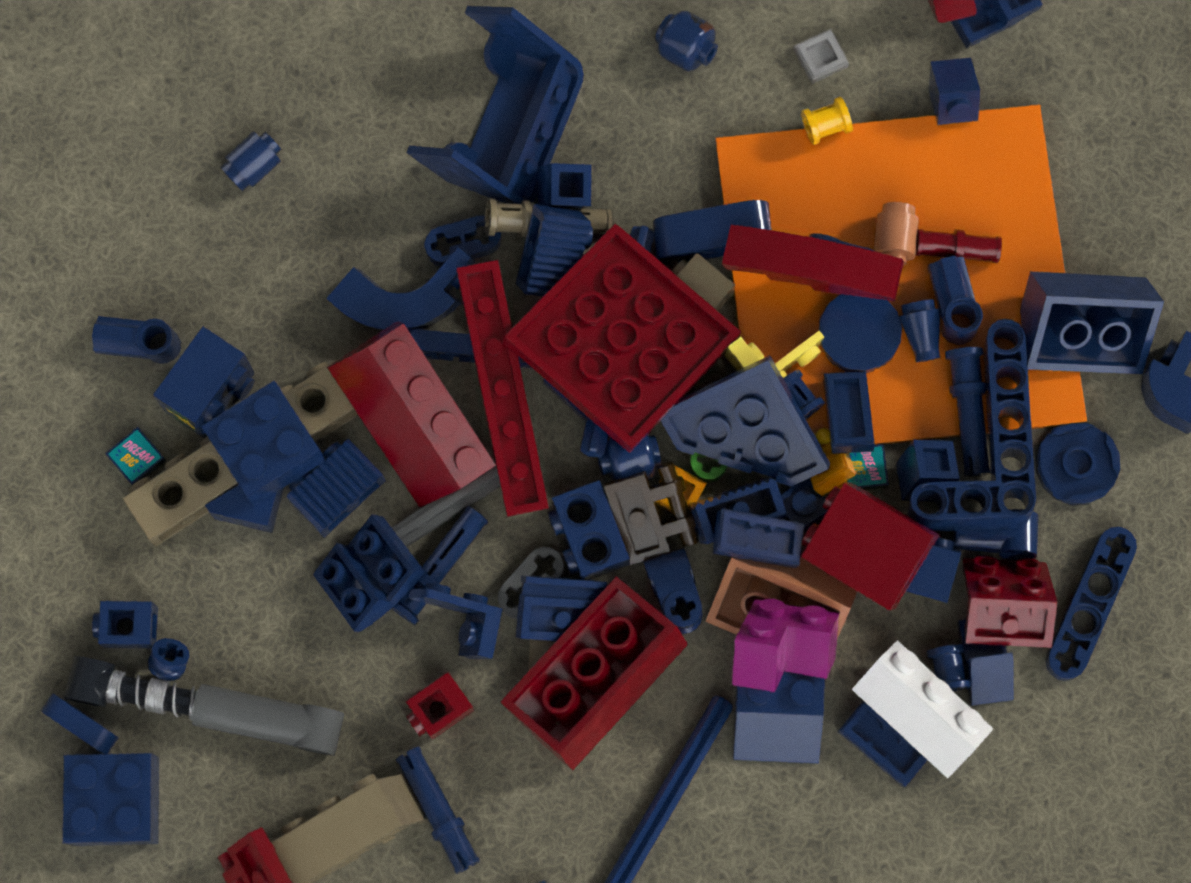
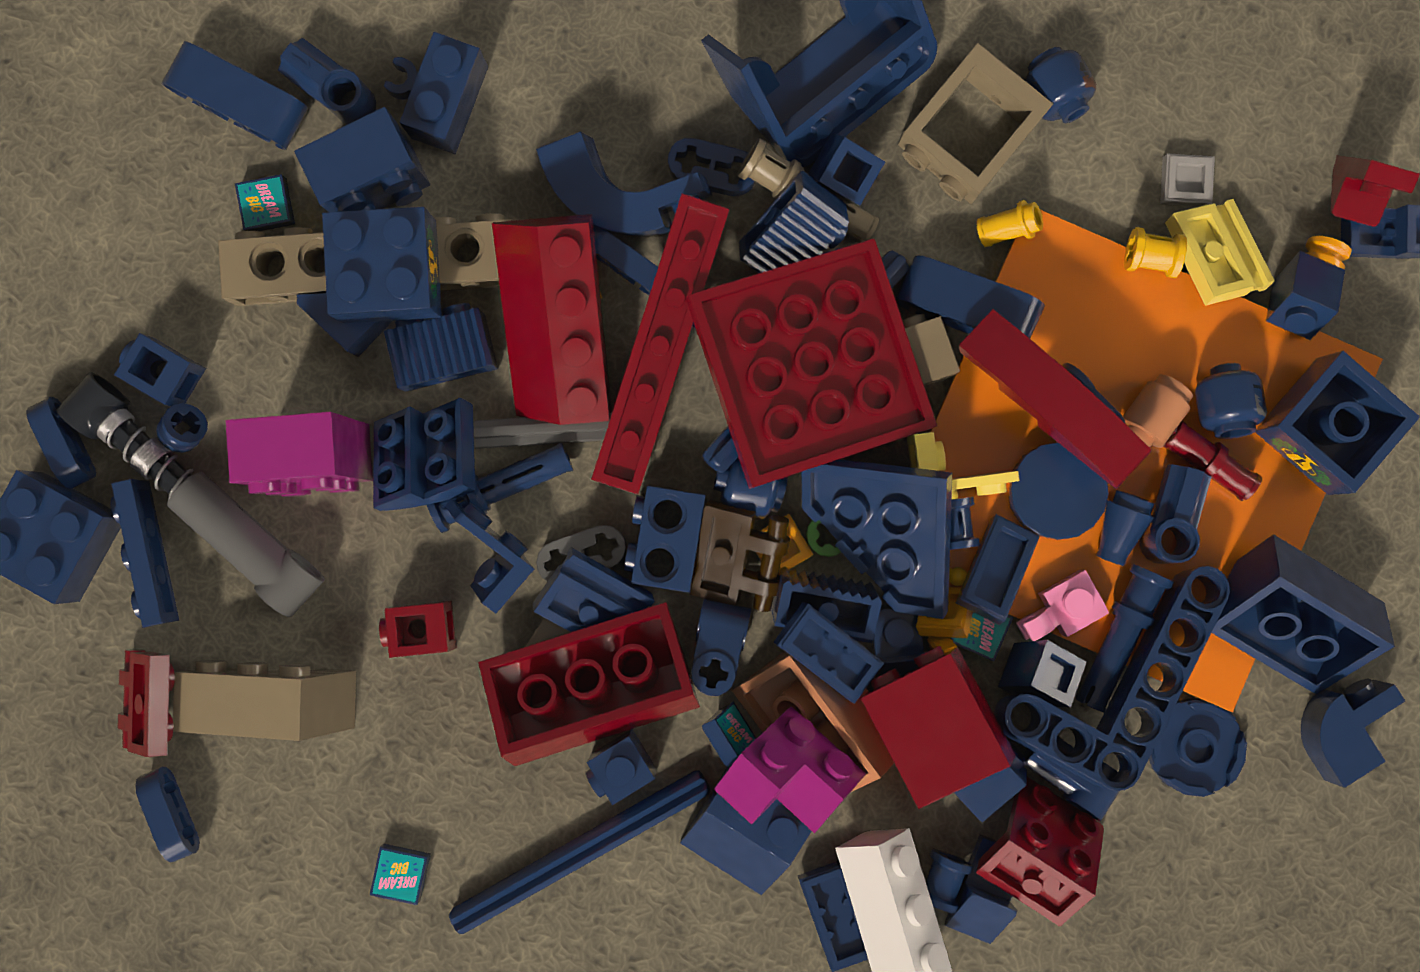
camera: 30 degrees right, 10 degrees up
(69, 385) = (235, 95): none -> dark blue beam
(191, 772) = (144, 552): none -> dark blue plate
(227, 297) = (441, 91): none -> dark blue brick
(280, 615) = (299, 453): none -> magenta brick
(438, 811) = (362, 729): dark blue pin -> none
(644, 65) = (1001, 87): none -> dark tan window
(653, 722) = (620, 767): none -> dark blue brick
(709, 159) = (1010, 224): none -> yellow pin
(718, 650) = (728, 733): none -> tile
(874, 94) = (1220, 252): none -> light yellow plate
(917, 411) = (1068, 606): none -> bright pink plate
(945, 196) = (1230, 401): none -> dark blue head
(953, 49) = (1328, 250): none -> light orange bush
(1028, 169) = (1337, 424): none -> dark blue brick
(1086, 601) = (1129, 903): dark blue beam -> none

